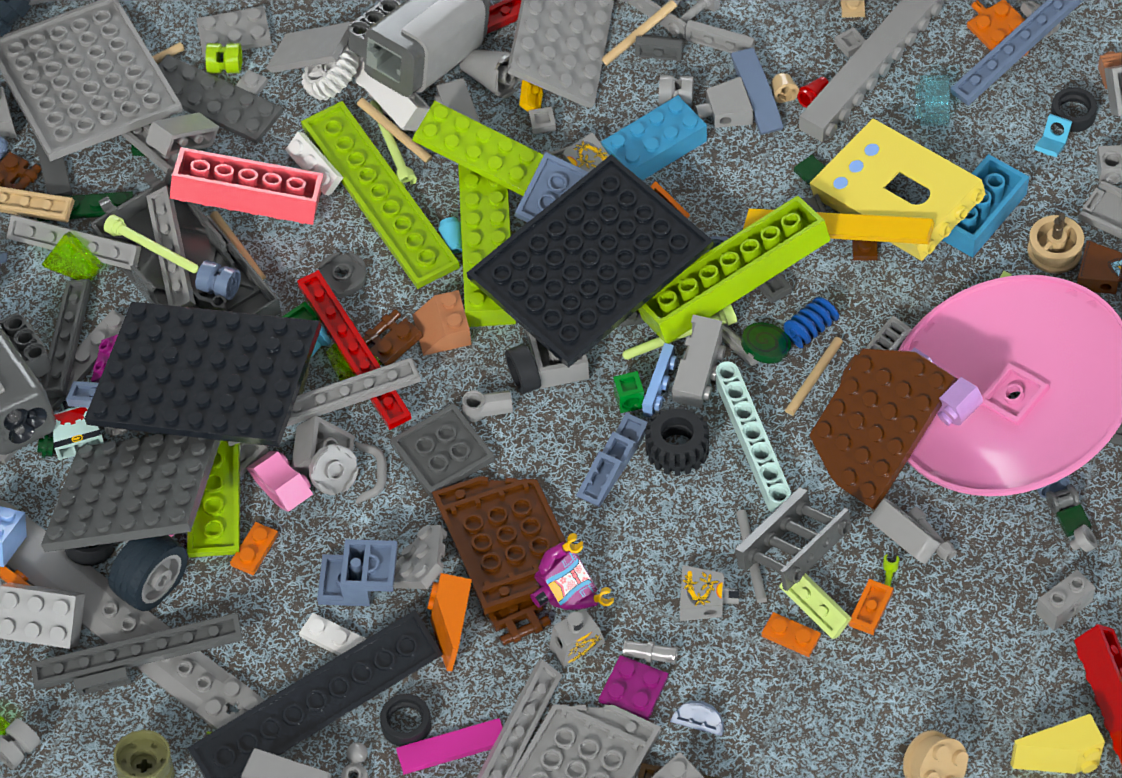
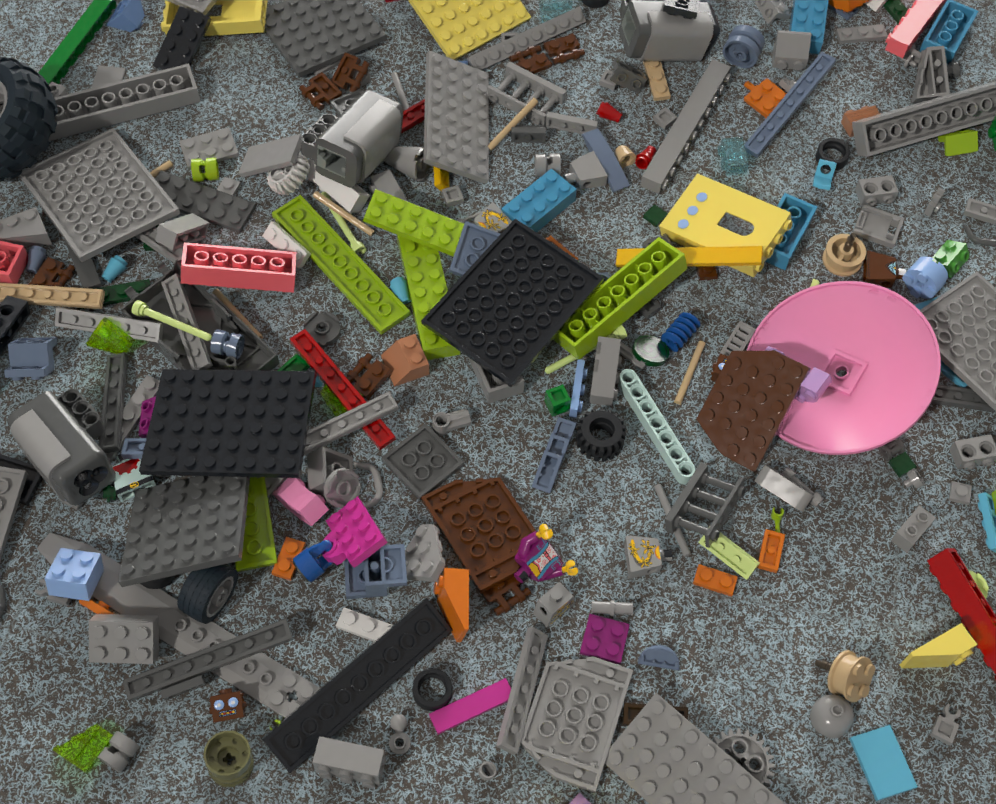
camera: 15 degrees left, 5 degrees up
(91, 173) = (114, 268): none -> medium azure cone
(152, 707) = (227, 705): none -> reddish brown head
(335, 527) = (351, 537): none -> dark pink plate
(523, 368) = (474, 390): black tyre -> none
(774, 27) = (608, 112): none -> red cone

